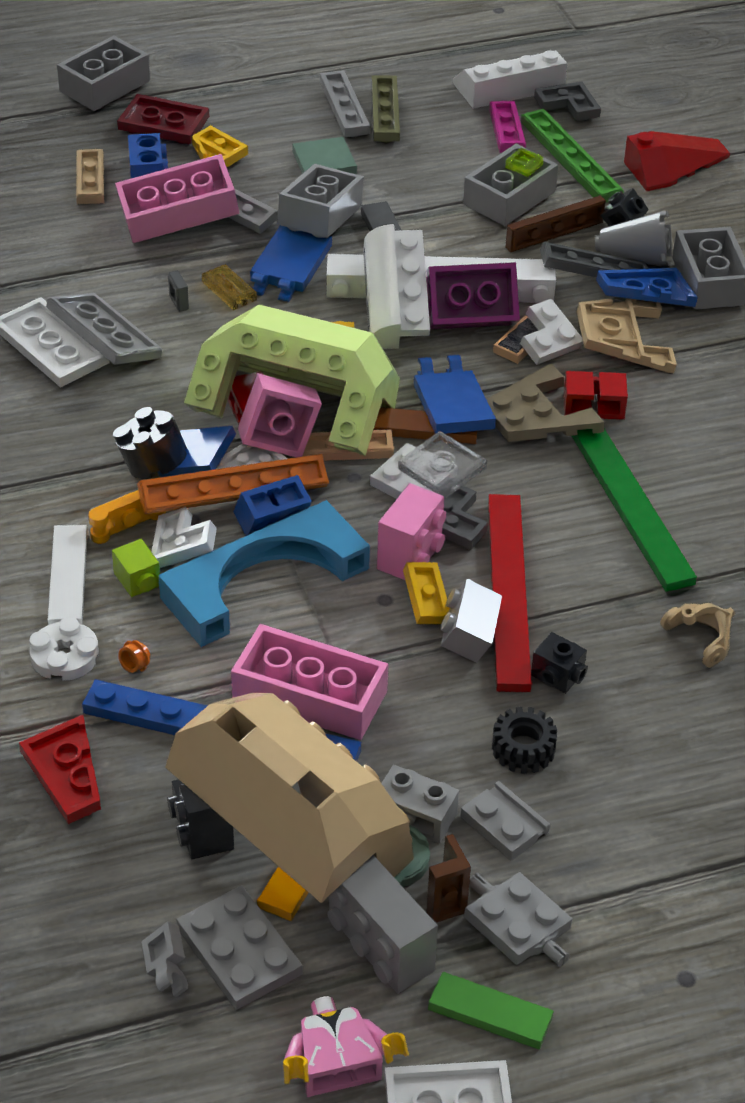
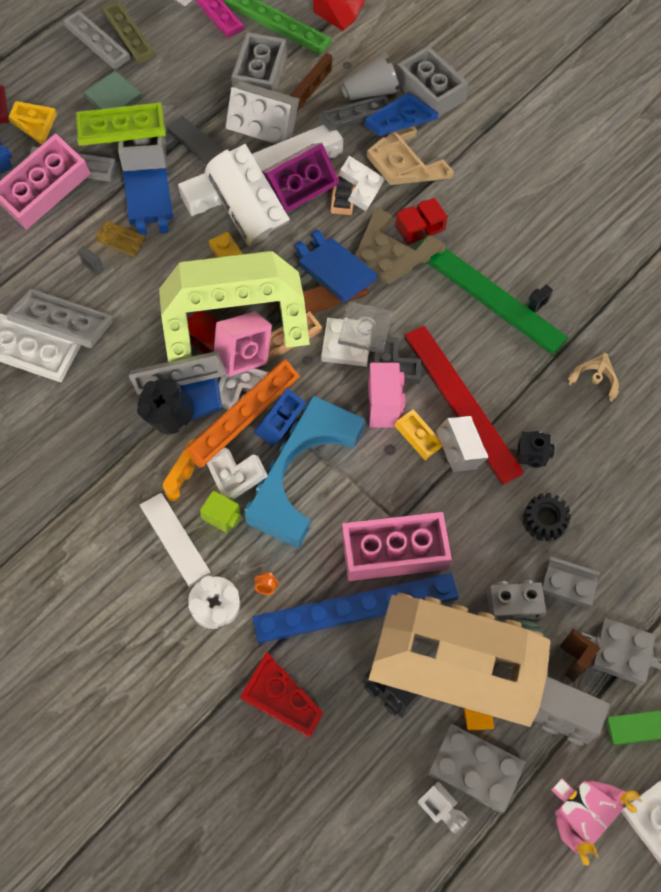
camera: 30 degrees left, 20 degrees up
(199, 417) = (180, 371): none -> light grey plate
(301, 173) = (120, 124): none -> lime tile
(475, 221) = (261, 113): none -> light grey brick
(524, 162) = (264, 47): clear neon green tile -> none
(624, 207) = (347, 58): black brick -> none
(688, 524) = (539, 298): none -> black plate

